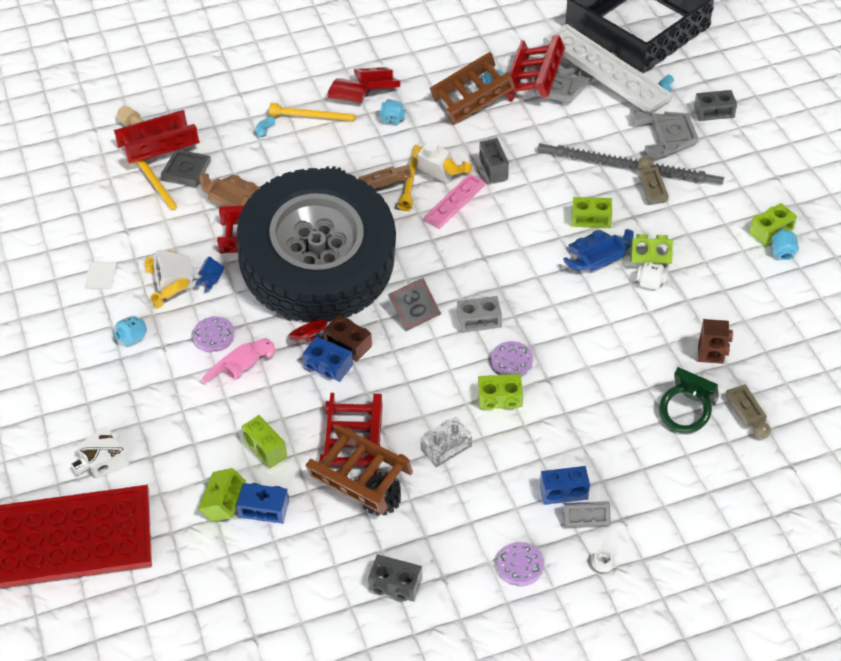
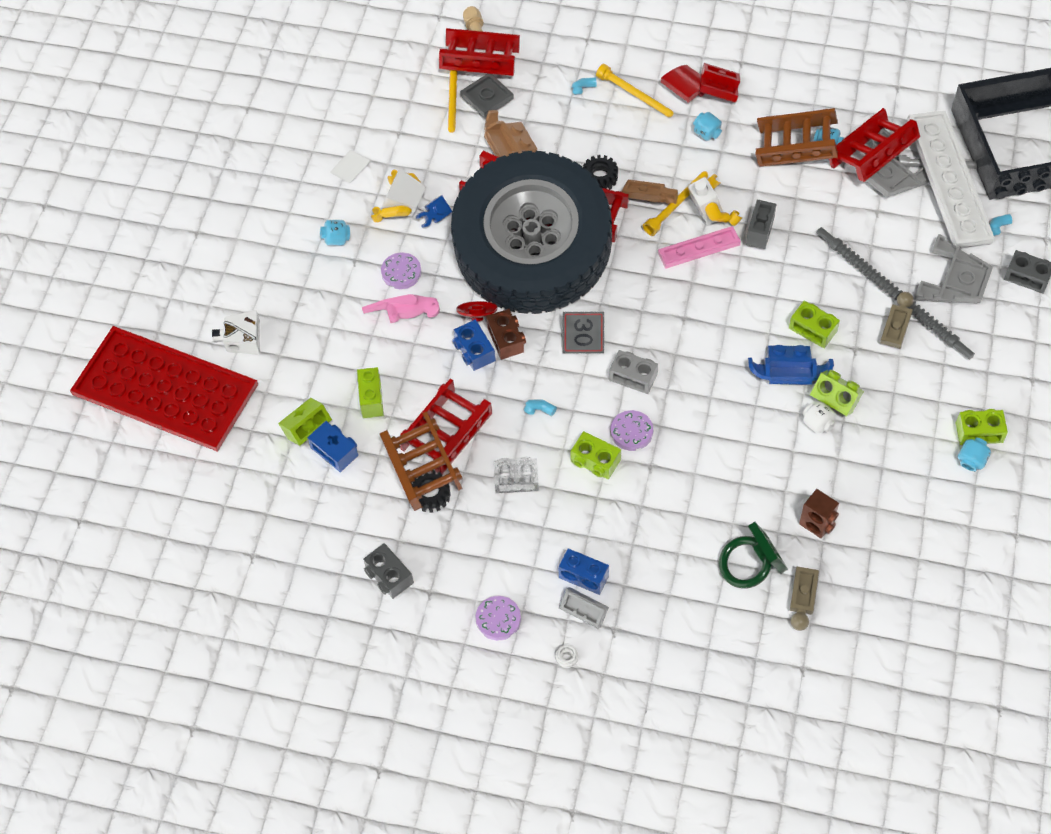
camera: 35 degrees right, 10 degrees up
(422, 377) = (539, 404): none -> medium azure arm

